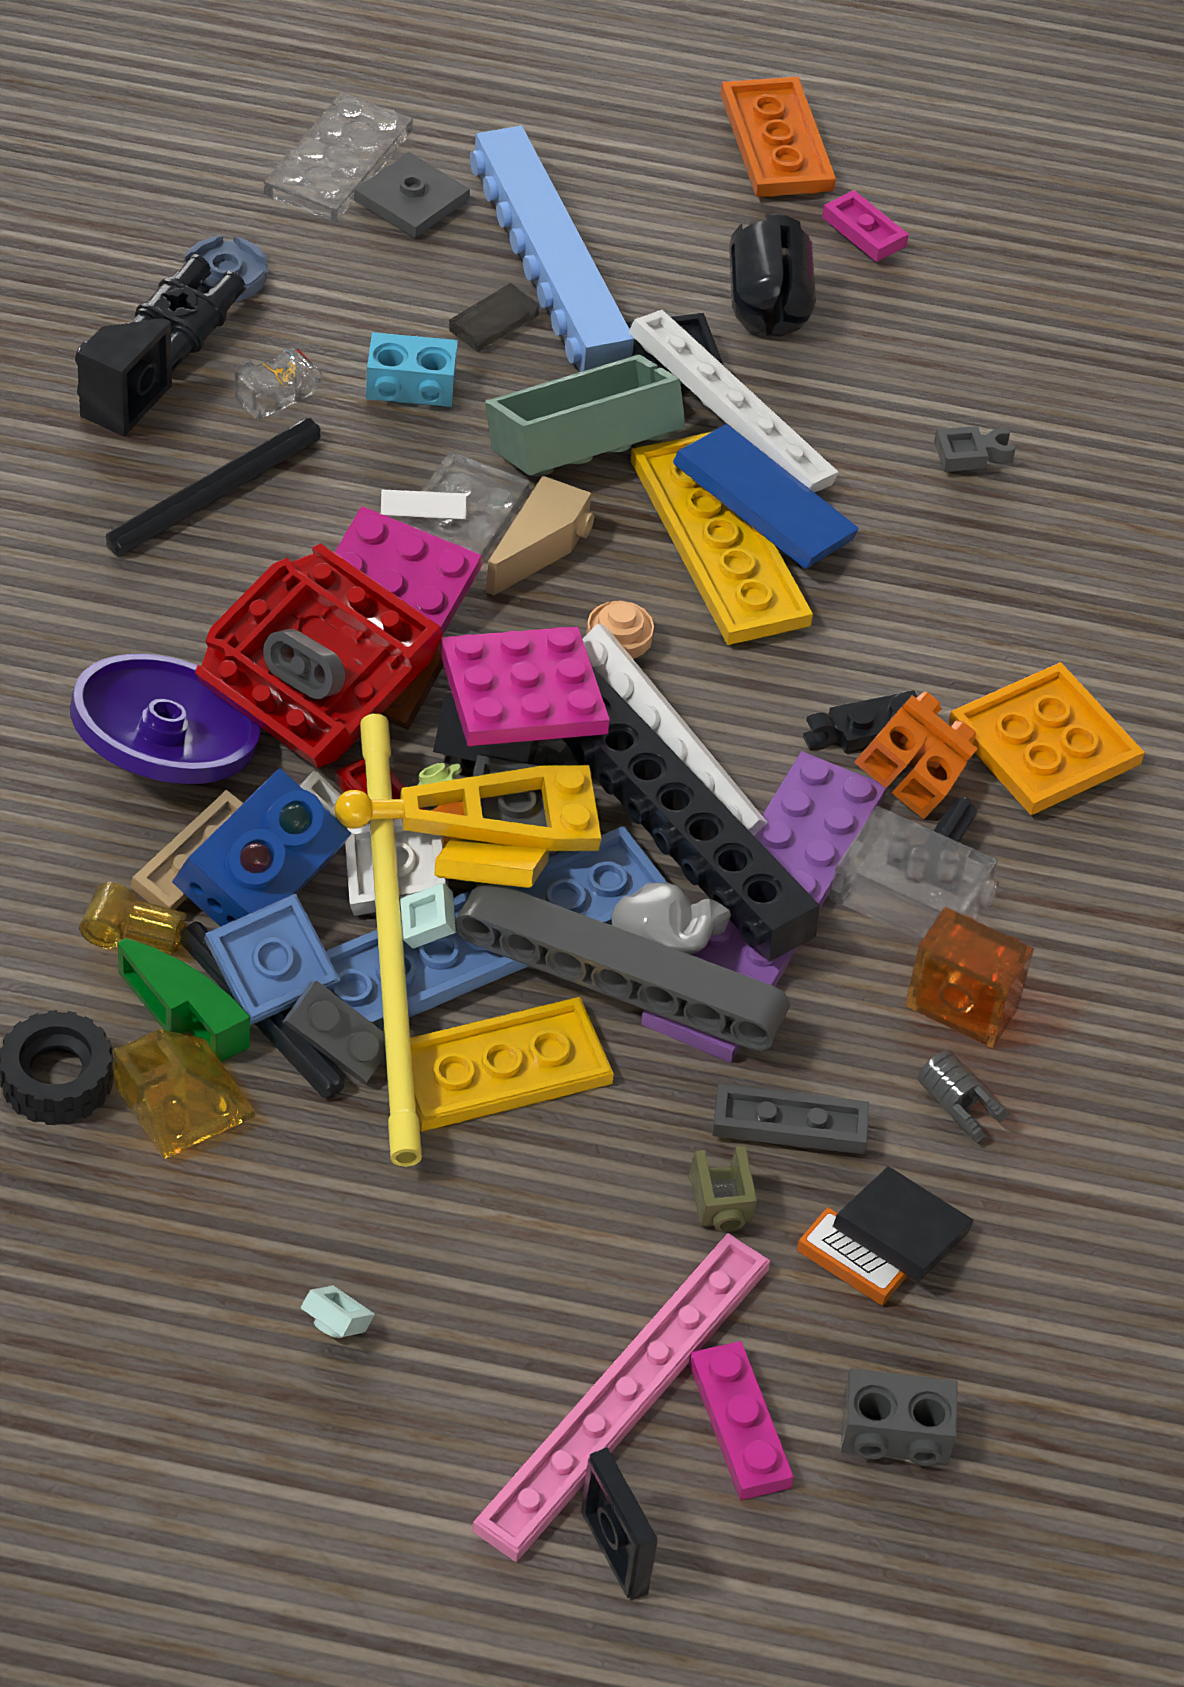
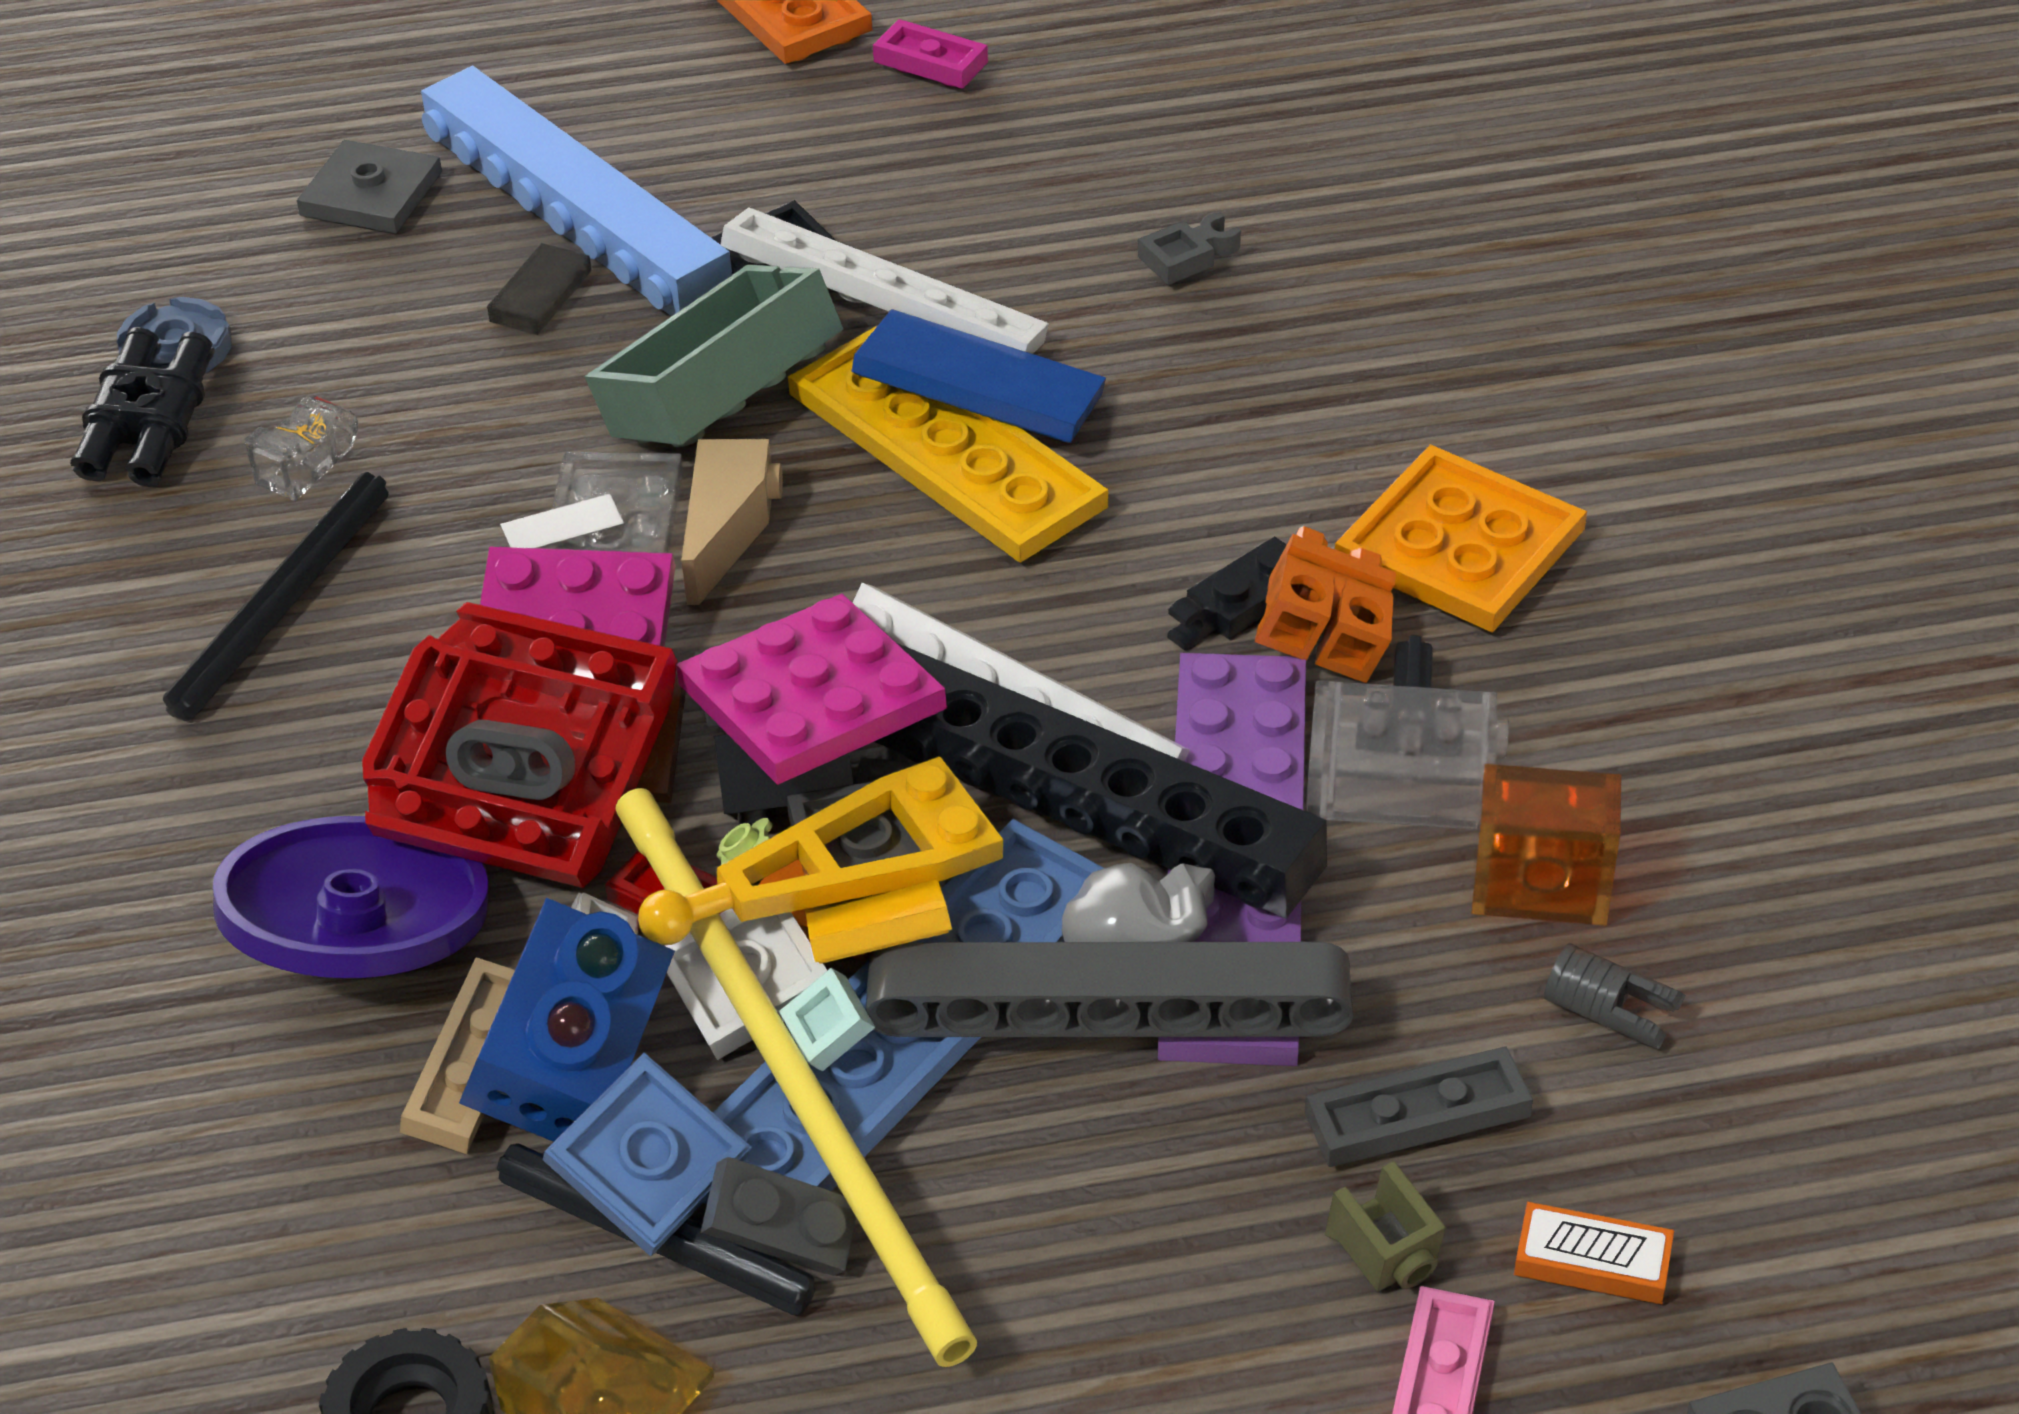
camera: 15 degrees left, 5 degrees down
(118, 915) = (402, 1177): clear yellow piece -> none
(124, 372) = (101, 493): black slope -> none
(184, 998) = (543, 1252): green slope -> none
(337, 156) = (257, 172): clear plate -> none
(411, 369) = (468, 376): medium azure brick -> none
(506, 1063) = (1018, 1173): yellow tile -> none
(628, 624) = (887, 571): light nougat plate -> none
(772, 275) = (857, 133): black cylinder -> none
(903, 1223) = (1634, 1186): black tile -> none

